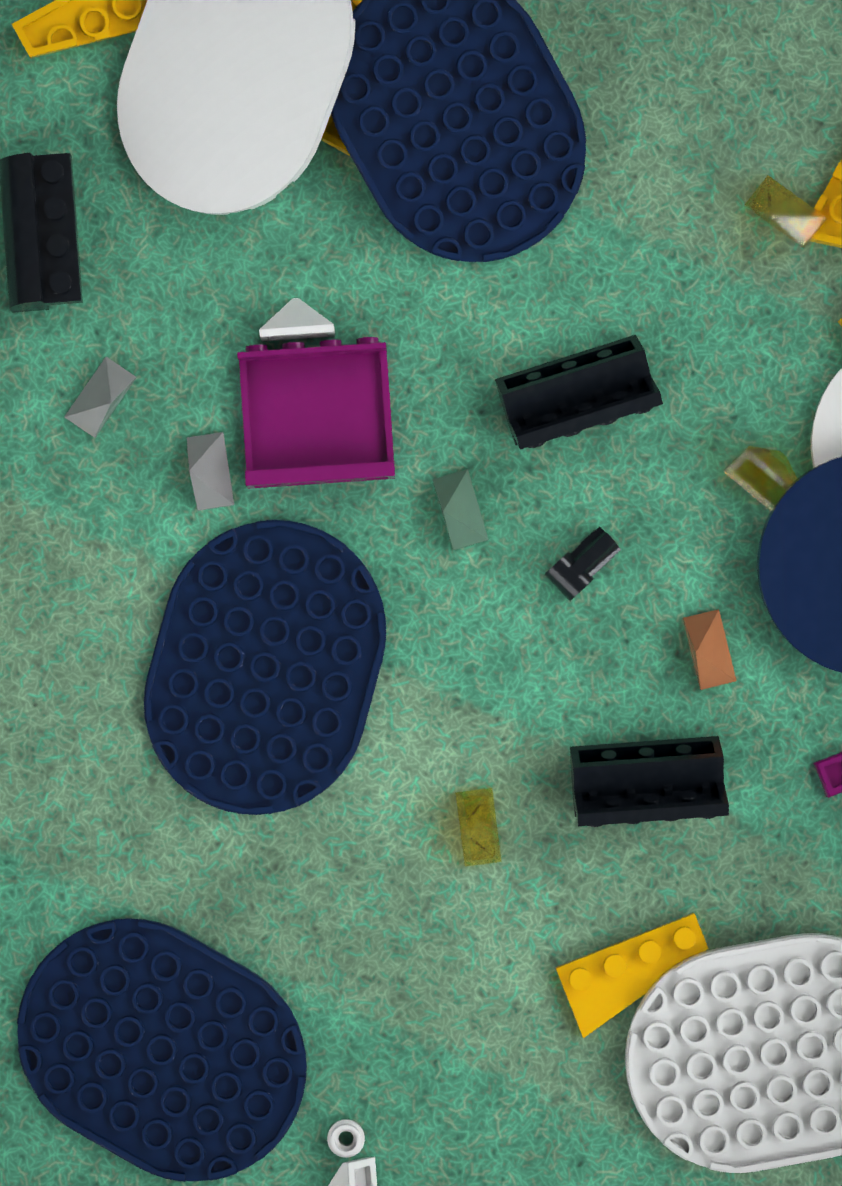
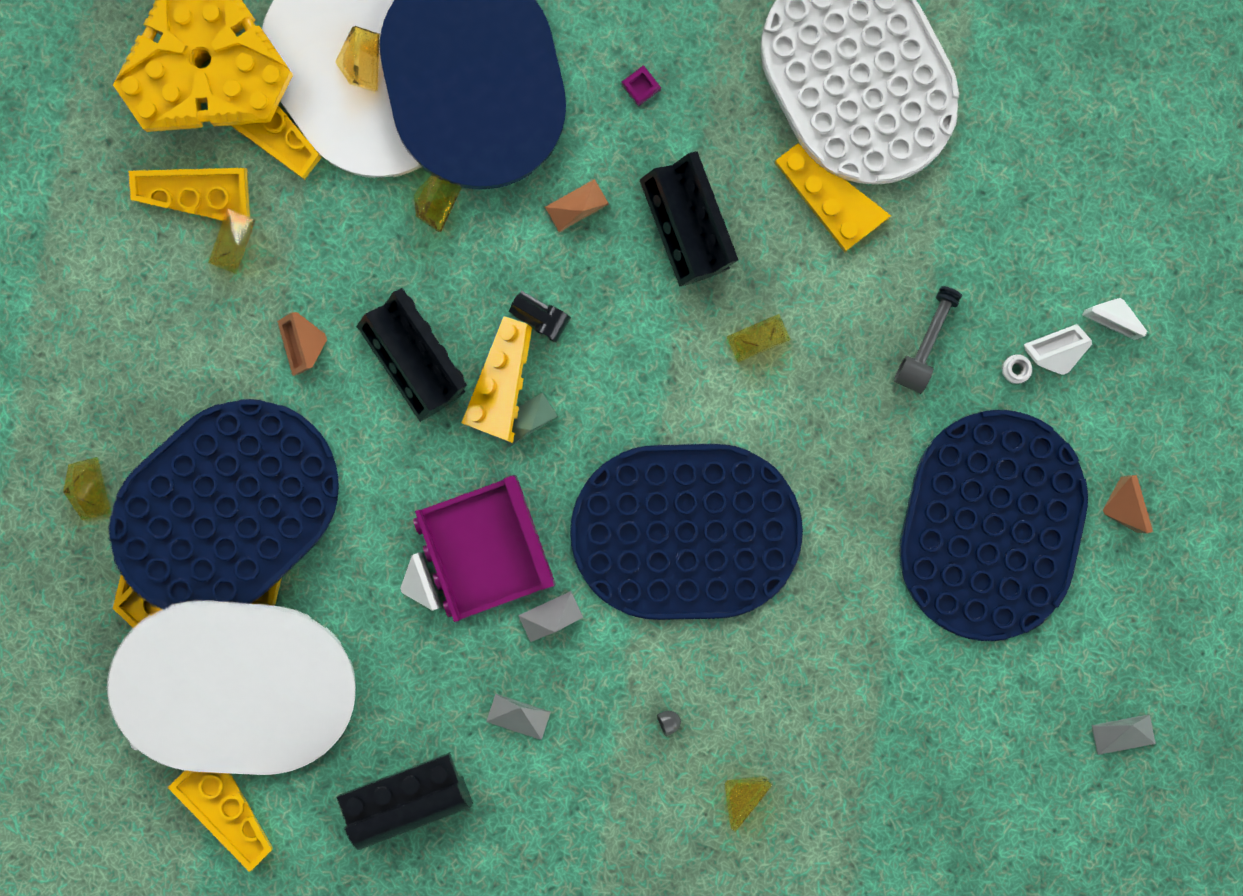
camera: 100 degrees left, 0 degrees up
(39, 578) = (669, 722): none -> dark grey hinge
(379, 1007) = (915, 372): none -> dark grey piece
(504, 483) = (497, 389): none -> yellow wing
(635, 262) = (301, 341): none -> nougat slope

